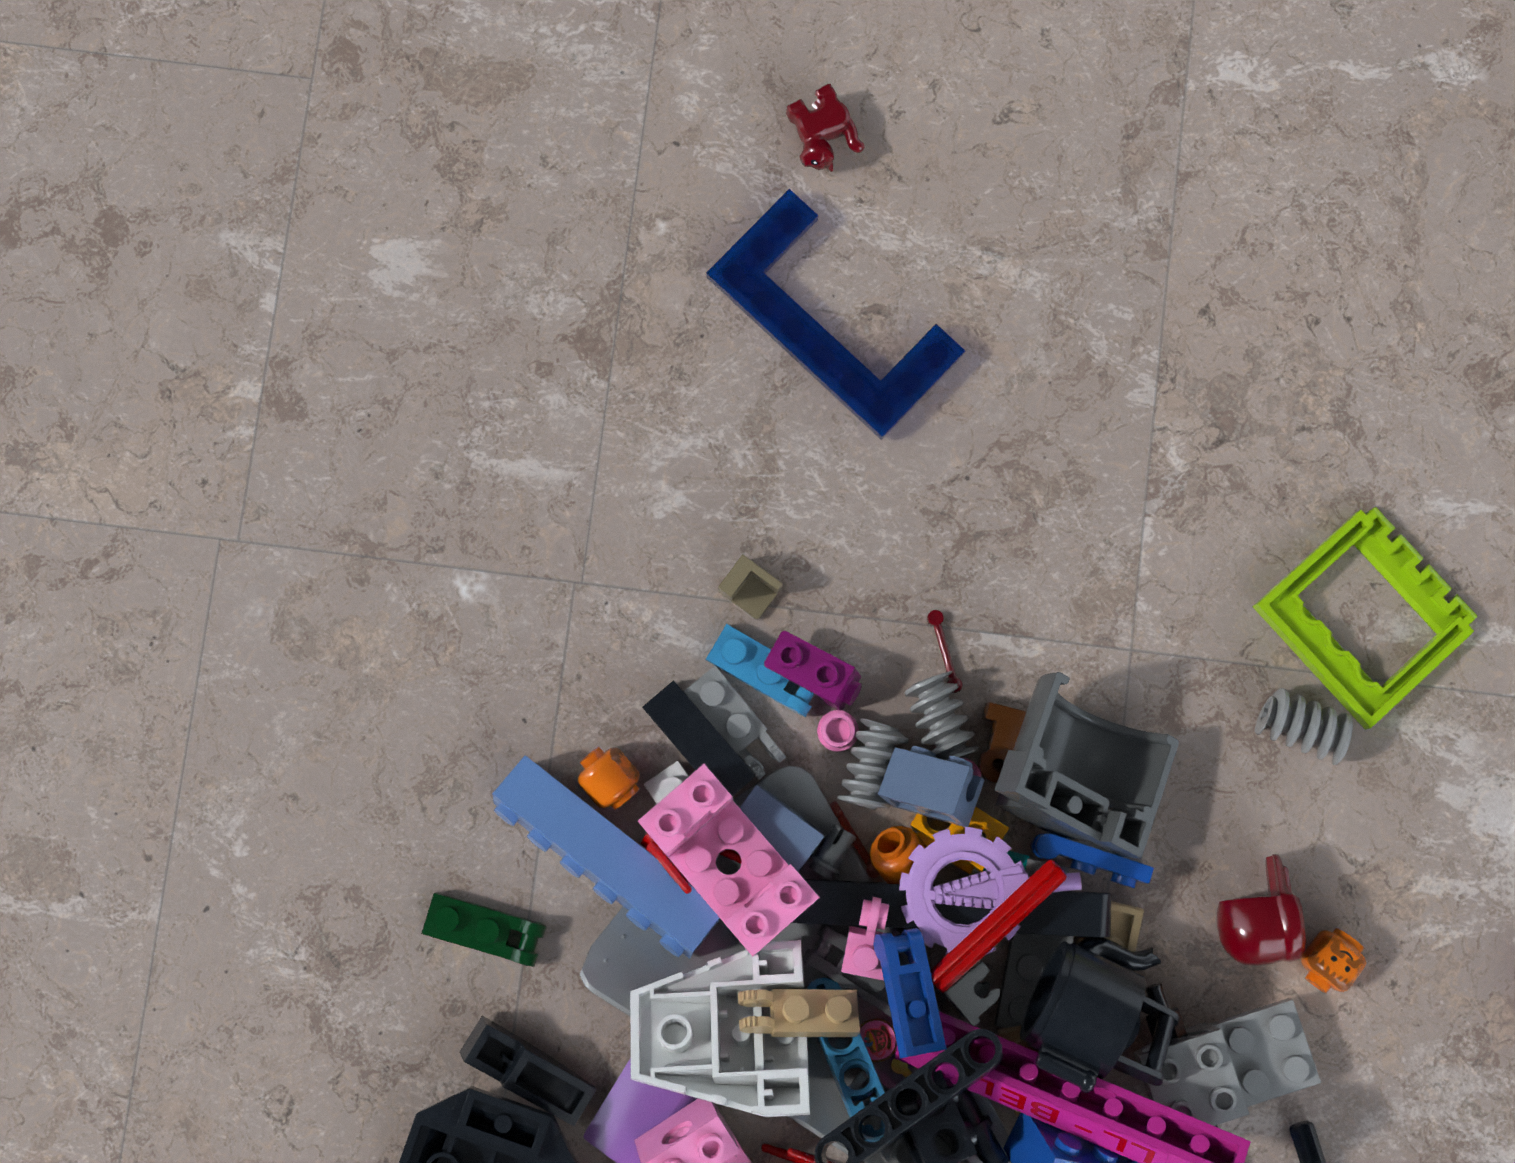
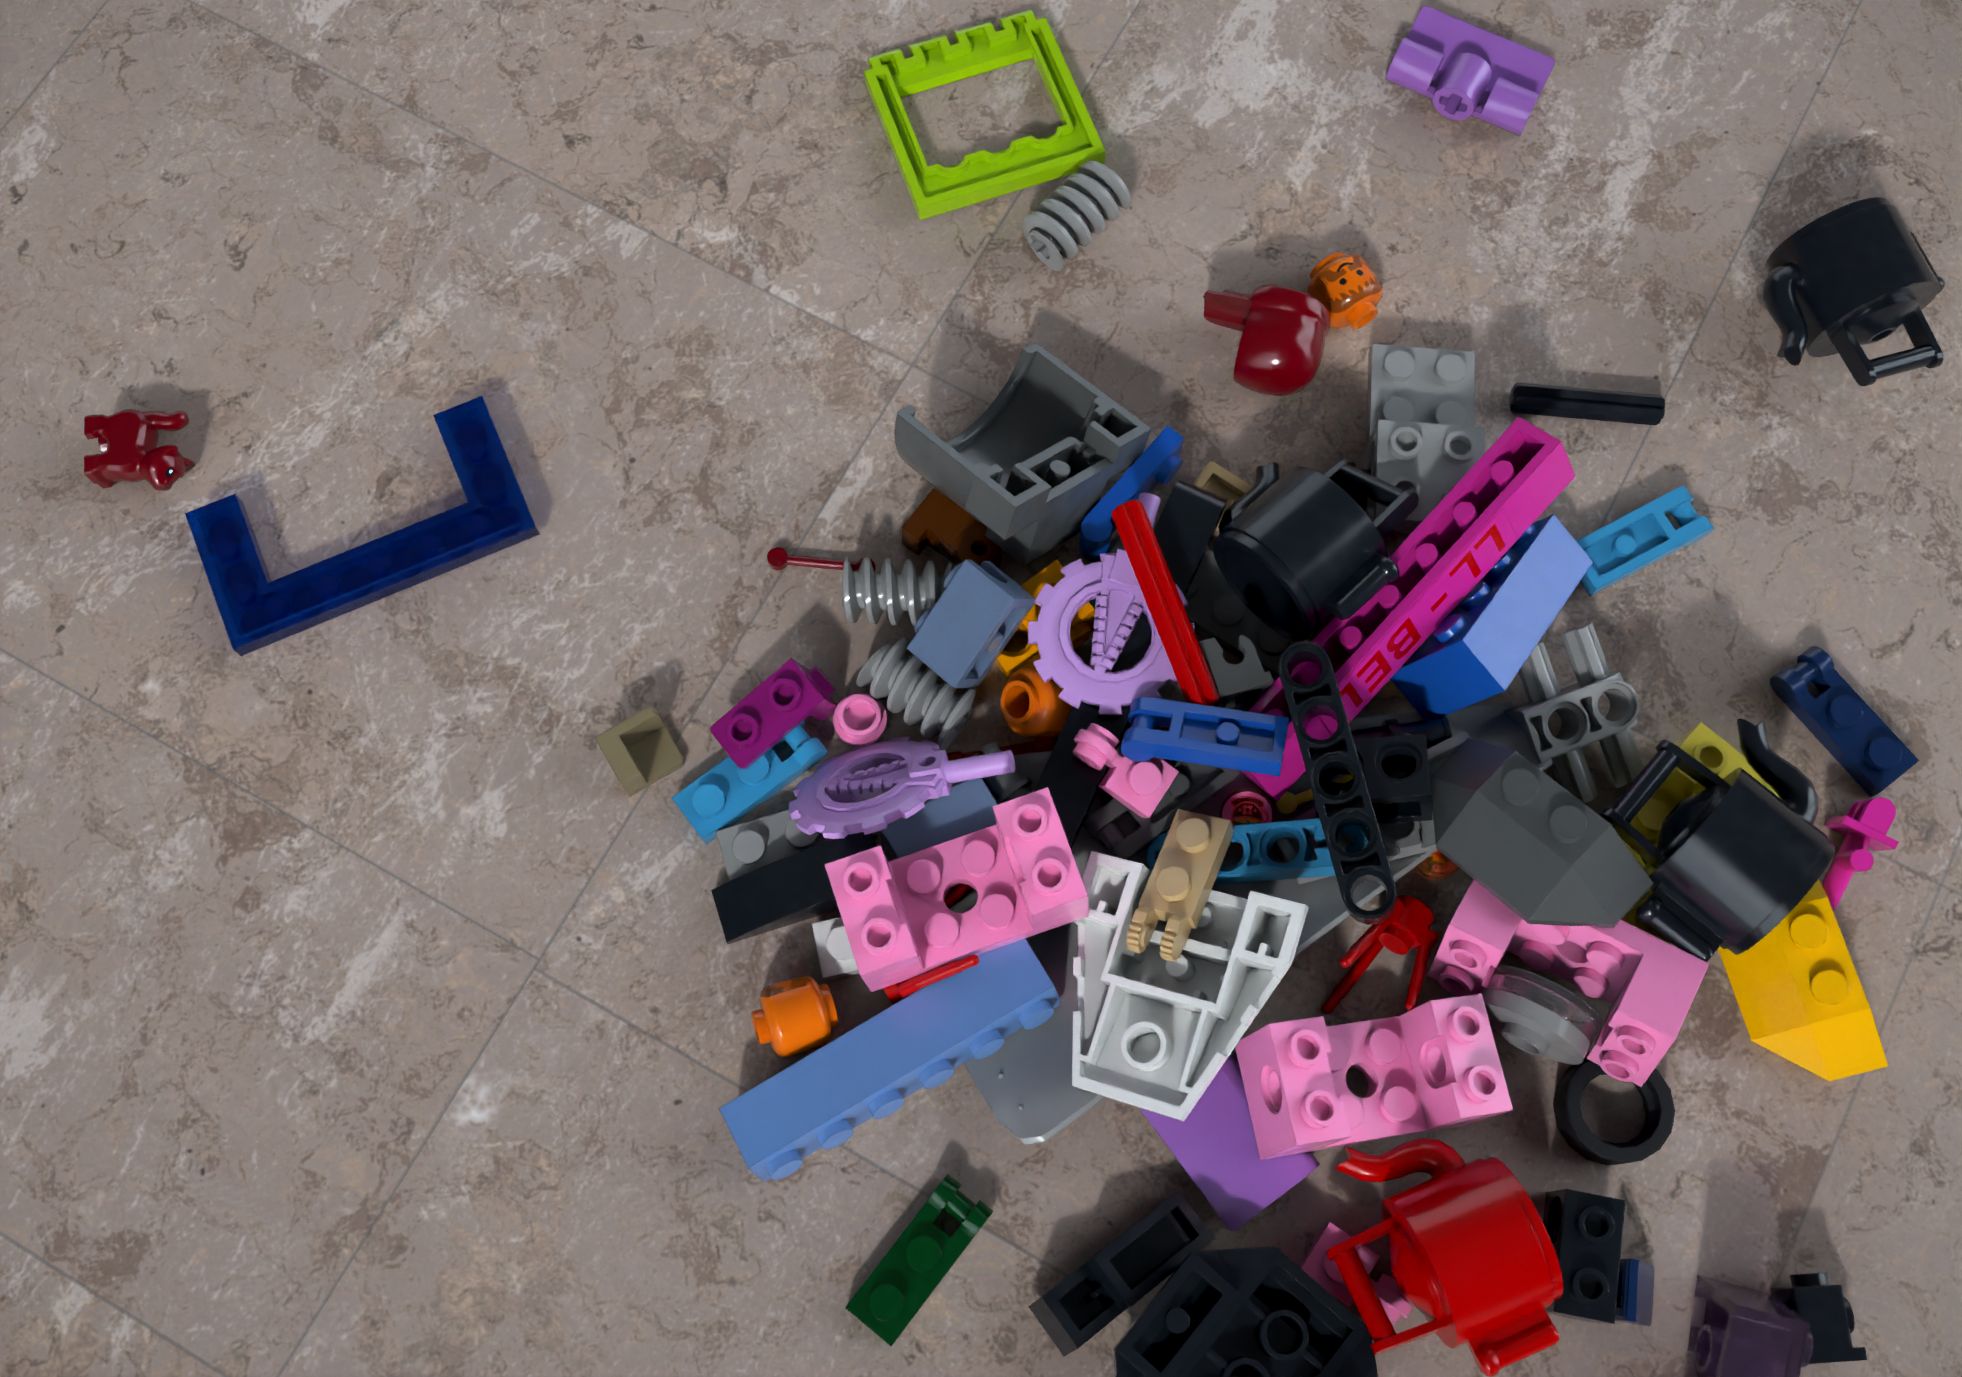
camera: 65 degrees left, 10 degrees down
(793, 786) = (882, 784): none -> lavender bar

